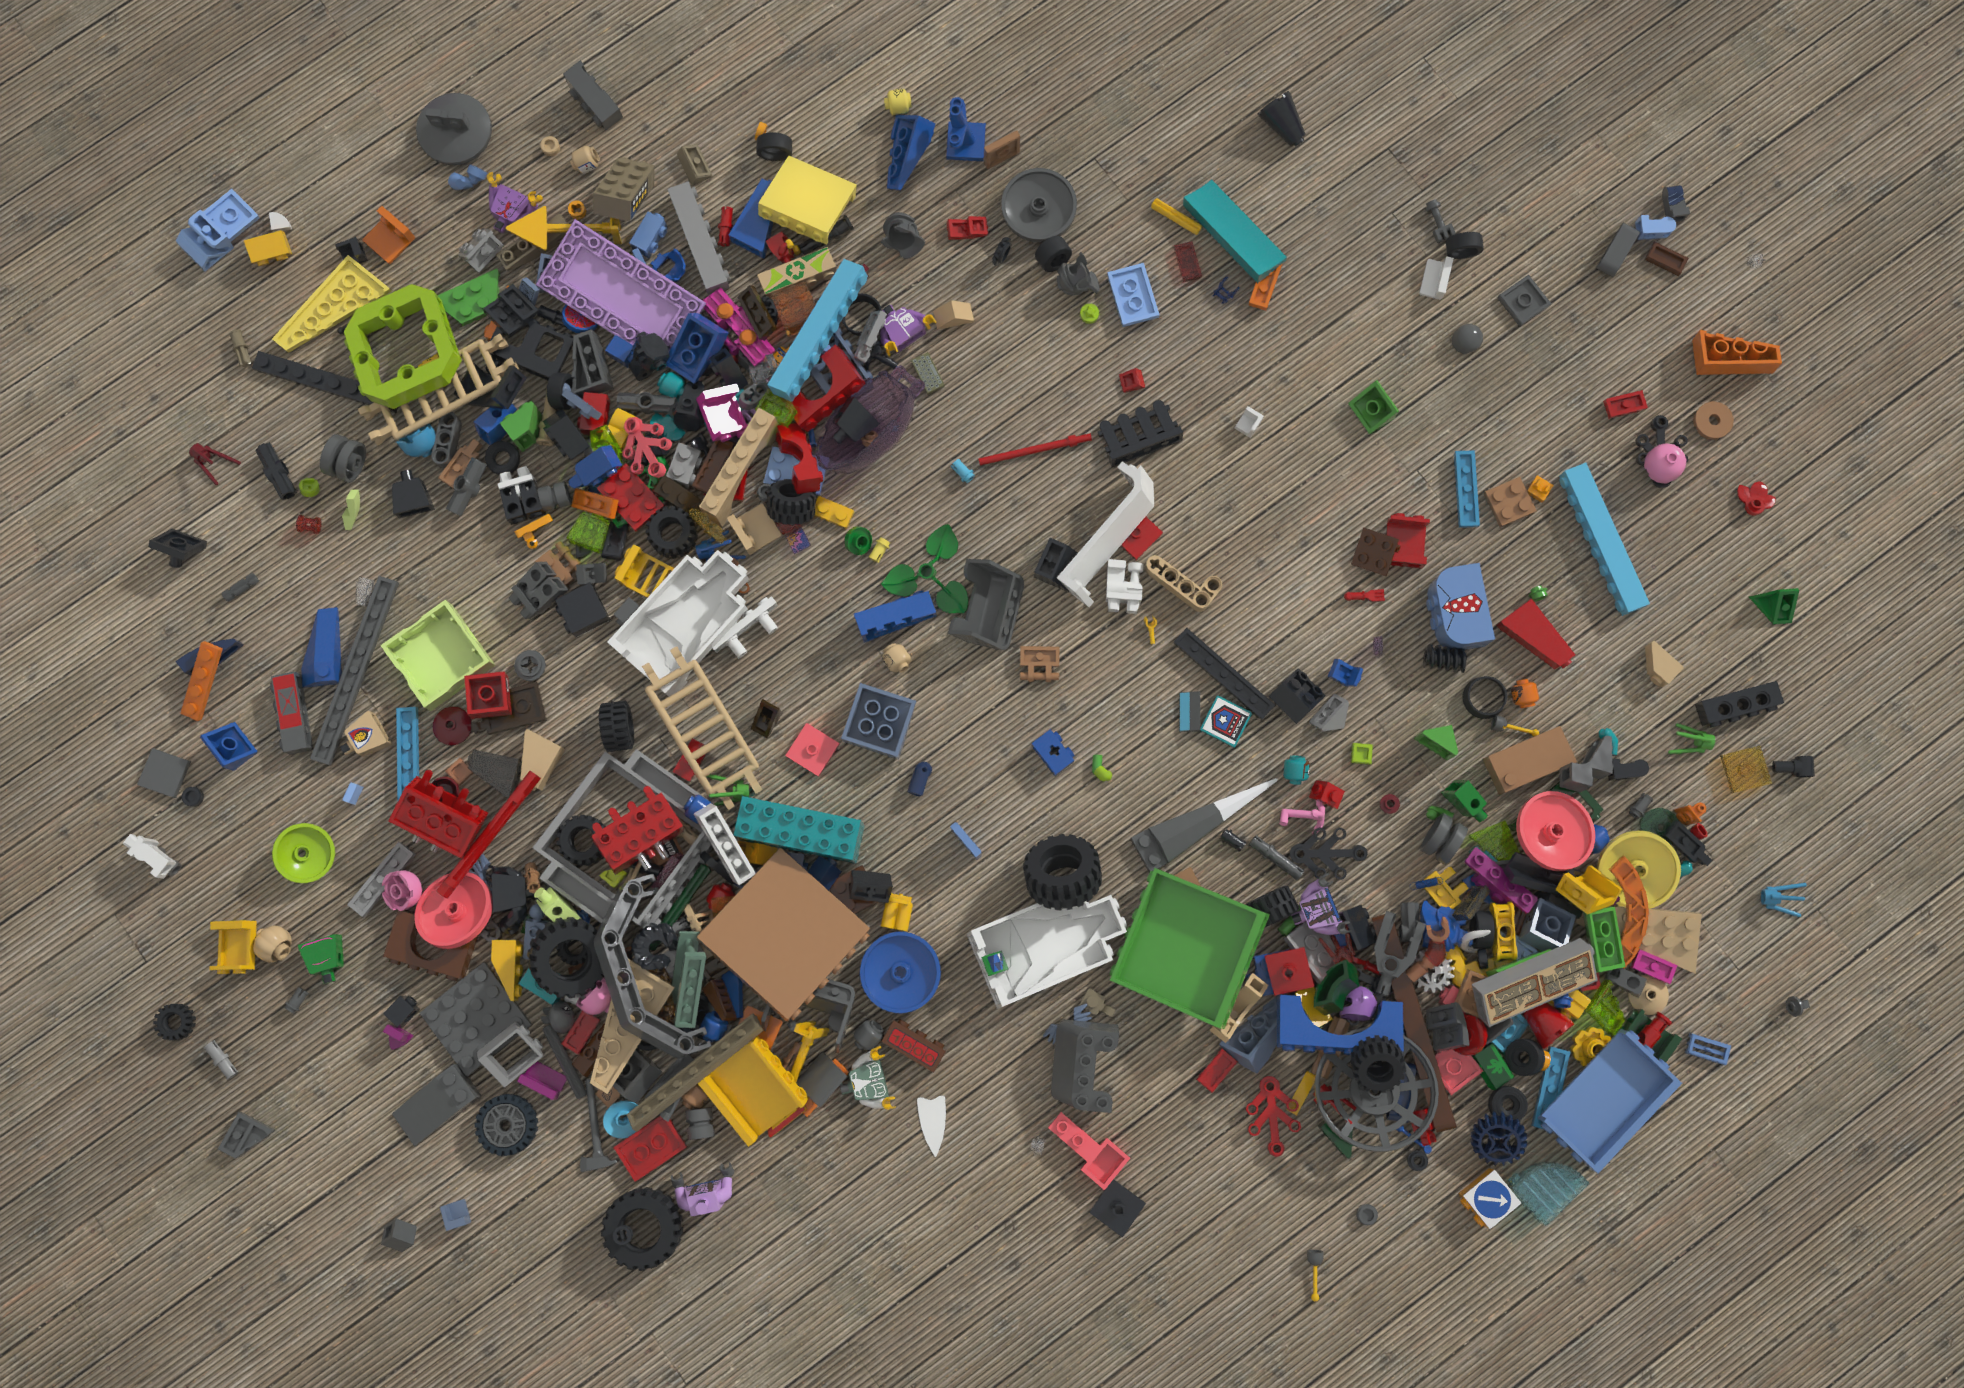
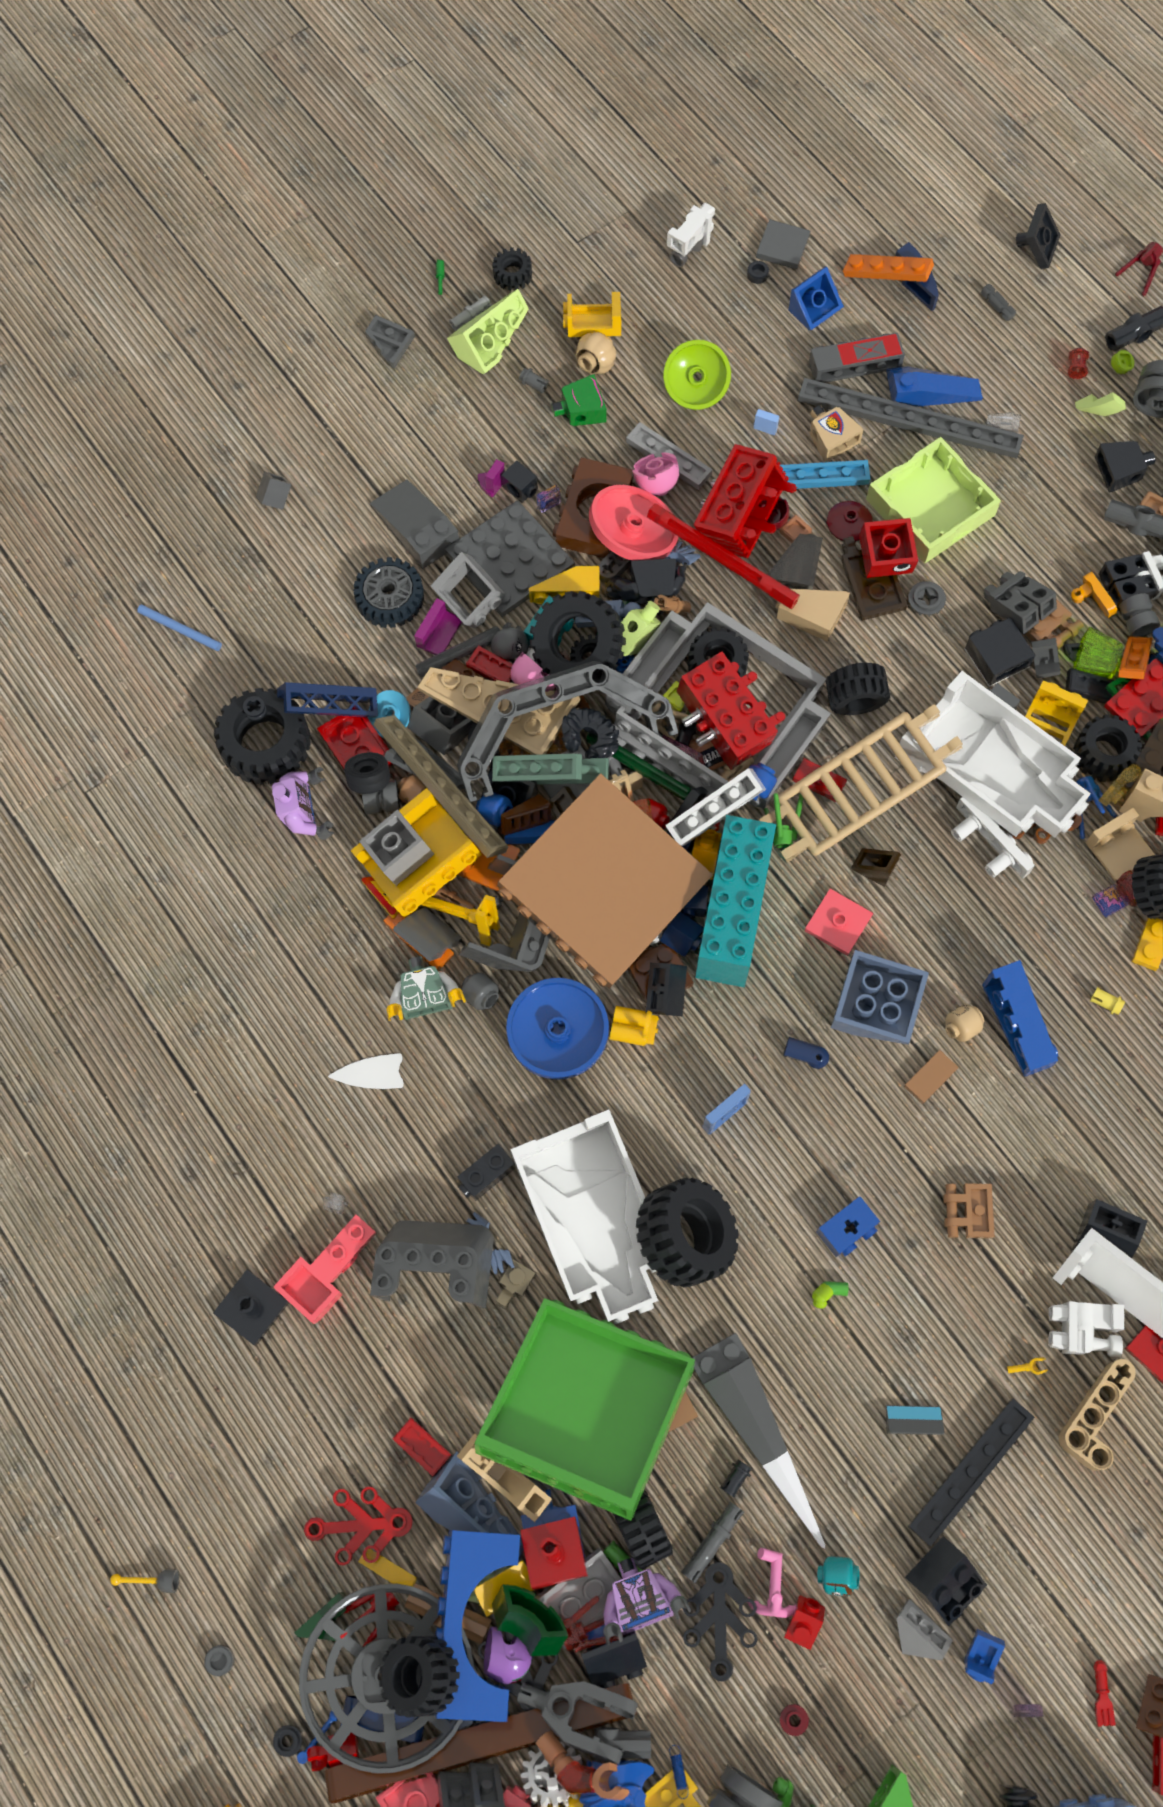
camera: 90 degrees right, 10 degrees down
(173, 1090) = (440, 274): none -> green piece
(244, 1044) = (486, 335): none -> yellowish green wedge
(420, 985) = (548, 498): none -> clear purple tile
(455, 1214) = (291, 544): sand blue panel -> none
(531, 1313) = (180, 628): none -> medium blue bar
(598, 1159) = (342, 679): dark grey piece -> none
(609, 1206) = (329, 694): none -> dark blue fence
(671, 1135) = (367, 773): none -> black tyre
(750, 1106) = (396, 847): none -> light grey brick
(858, 540) = (1118, 973): green plate -> none
(902, 582) = (1068, 1030): green plant -> none
(914, 1045) = (466, 1047): brick -> none
(937, 685) = (931, 1077): none -> medium nougat tile
(991, 605) = (1045, 1146): dark grey windscreen -> none
(995, 963) = (567, 1145): slope -> none
(1014, 1027) = (485, 1173): none -> black brick
(1225, 721) = (903, 1473): tile -> none
(1361, 753) = (866, 1679): lime tile -> none
(1366, 965) = (561, 1675): red piece -> none

